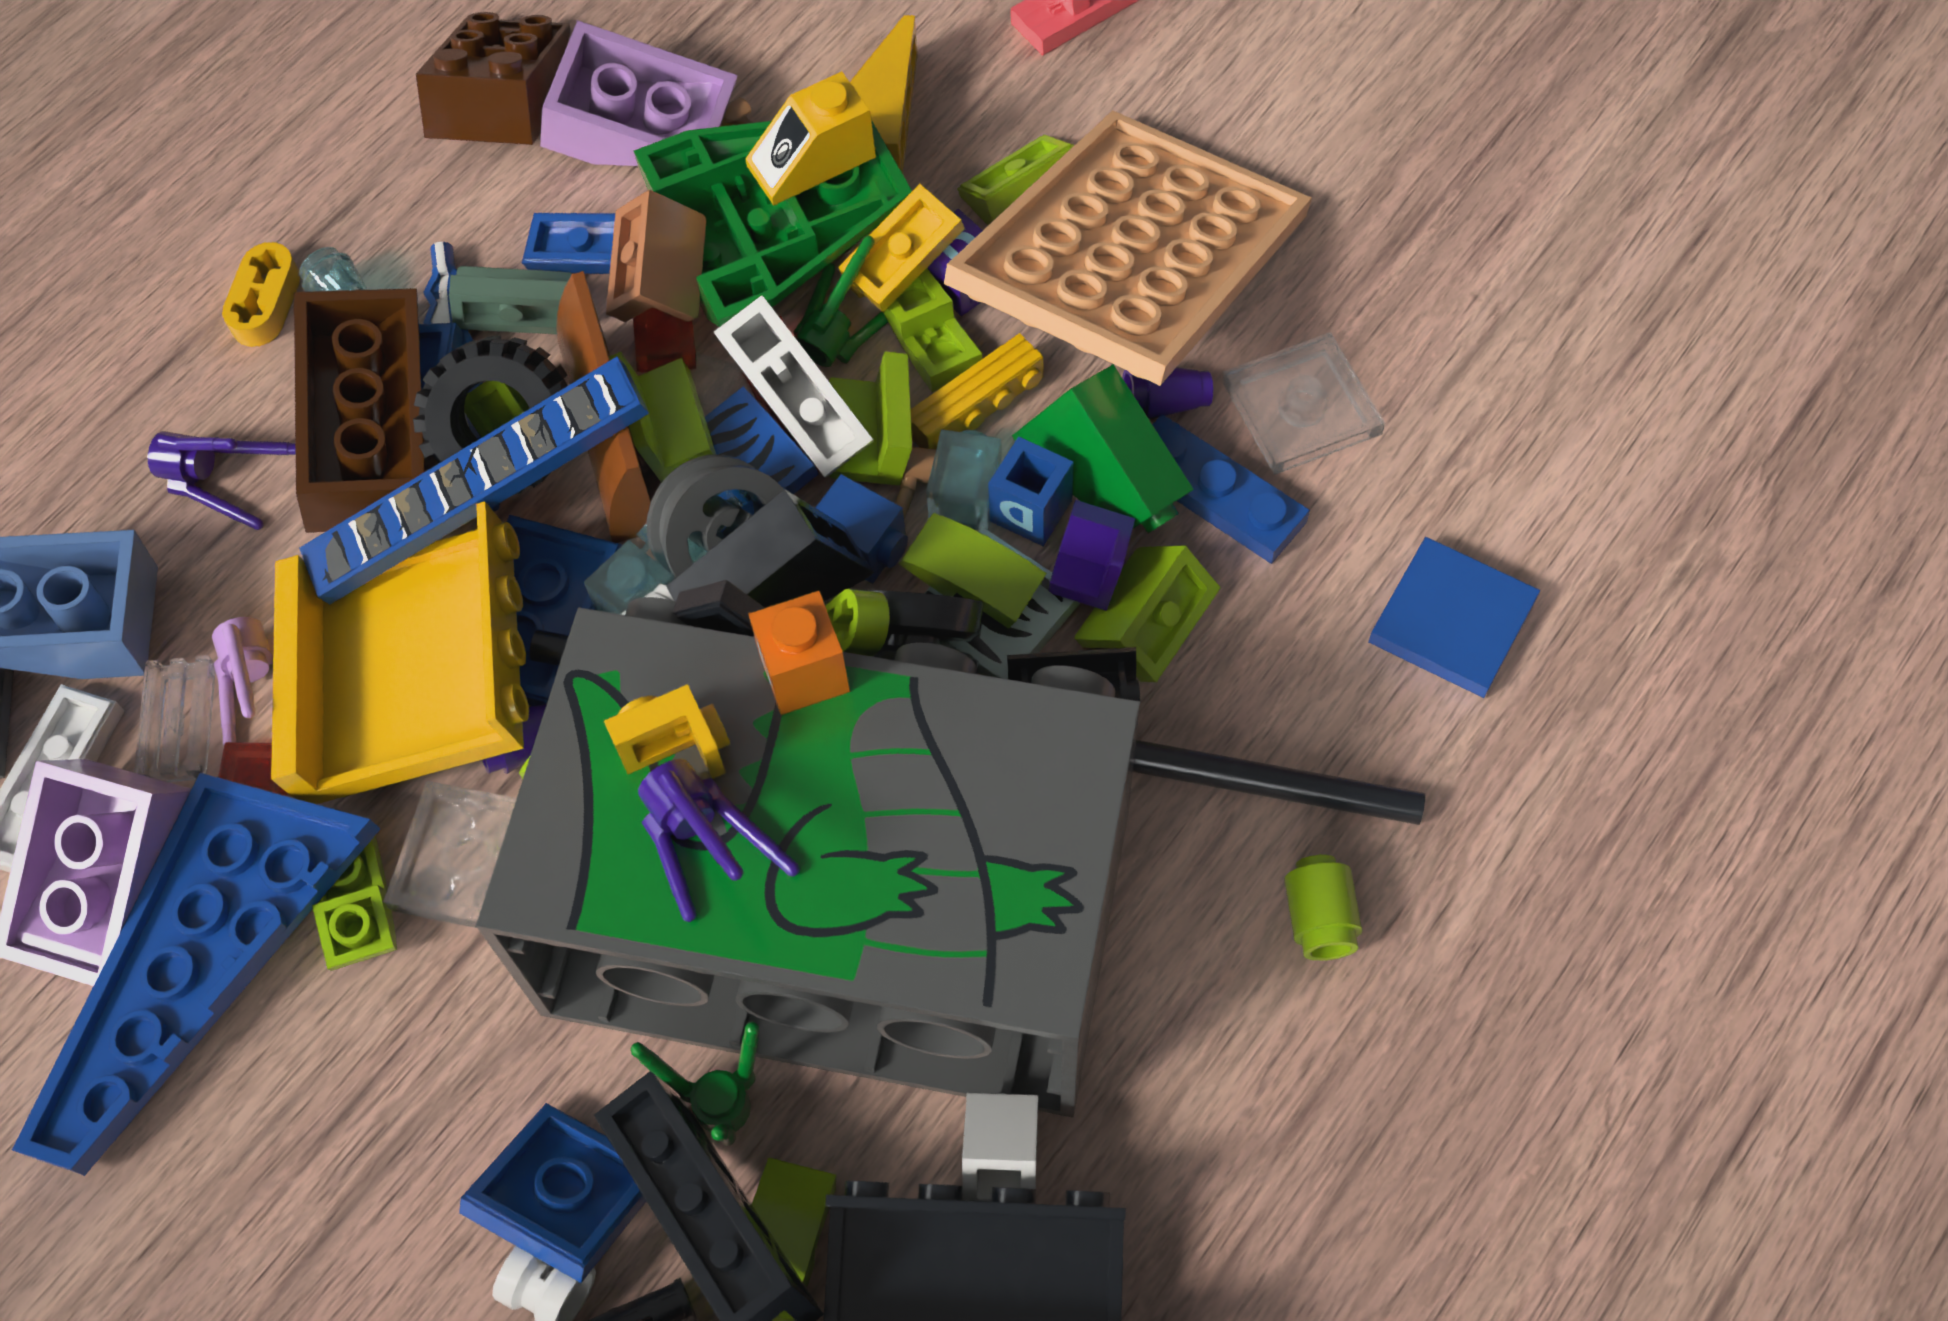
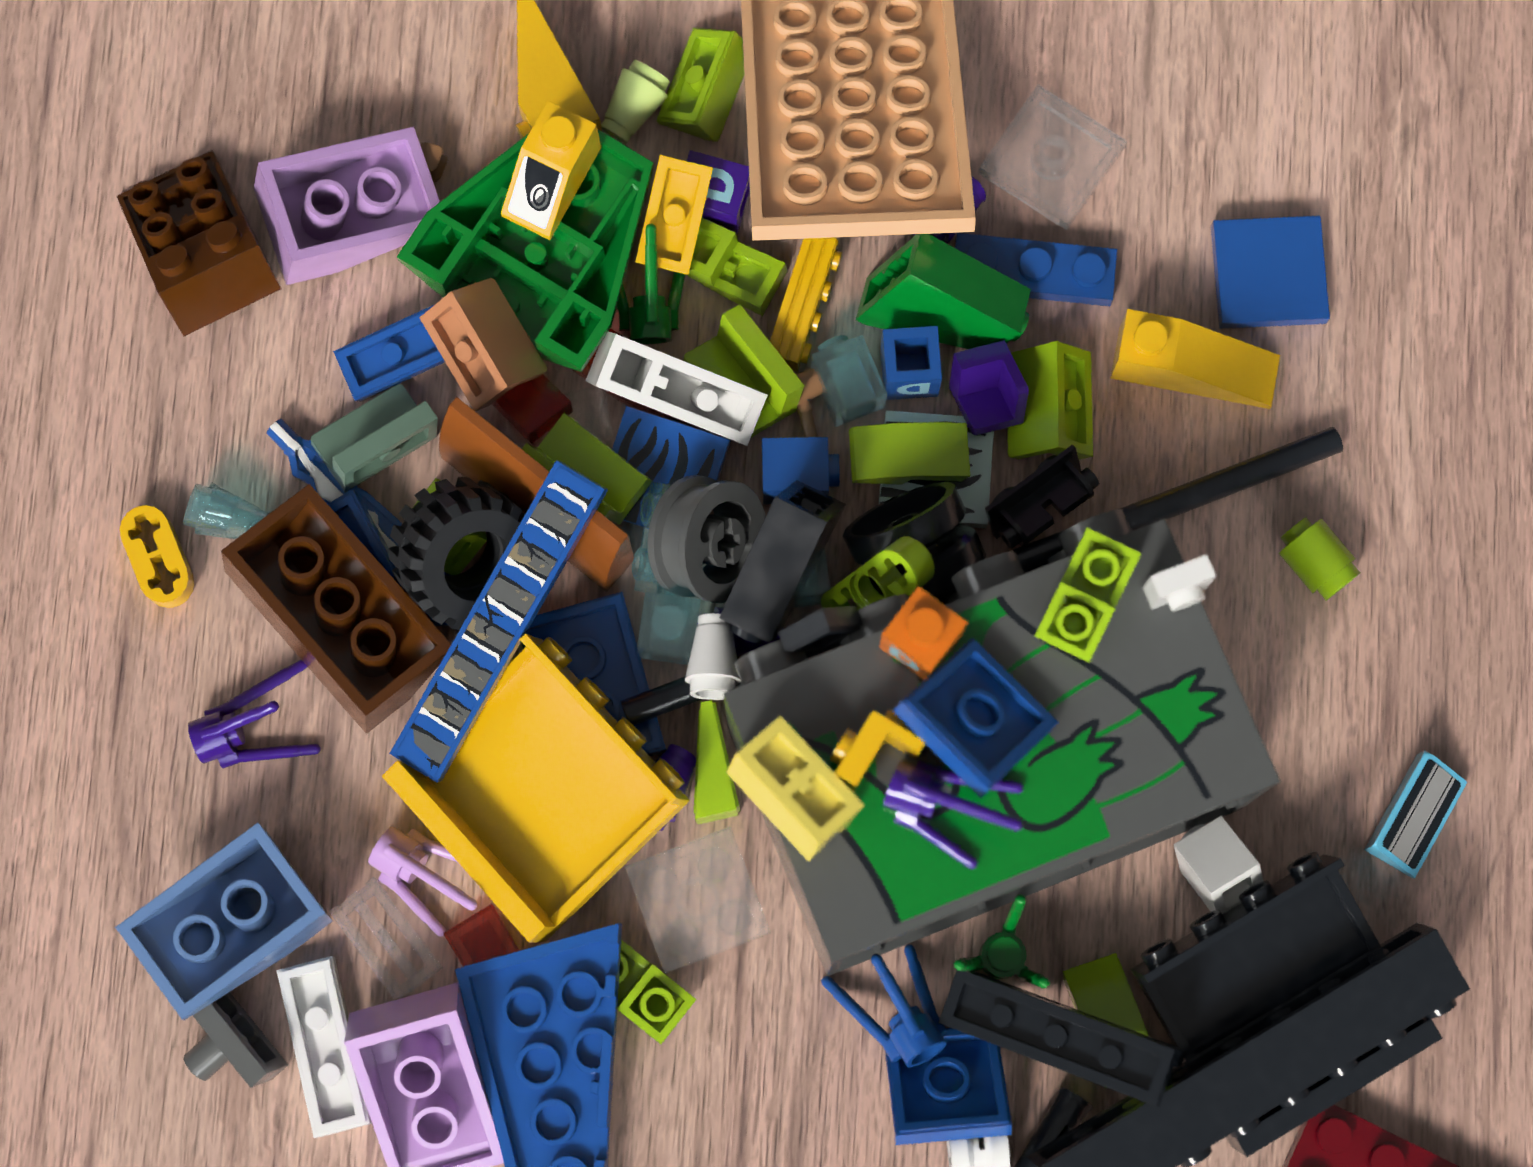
camera: 35 degrees left, 15 degrees up
(563, 720) = (794, 788): none -> light yellow hinge
(564, 1112) = (914, 1034): none -> blue plant
(791, 762) = (975, 717): none -> blue tile
(946, 157) = (634, 100): none -> yellowish green cone
(1006, 723) = (1088, 595): none -> lime slope
(1102, 760) = (1180, 585): none -> white plate
(1260, 1239) = (1416, 814): none -> slope
(1316, 647) = (1192, 360): none -> yellow slope

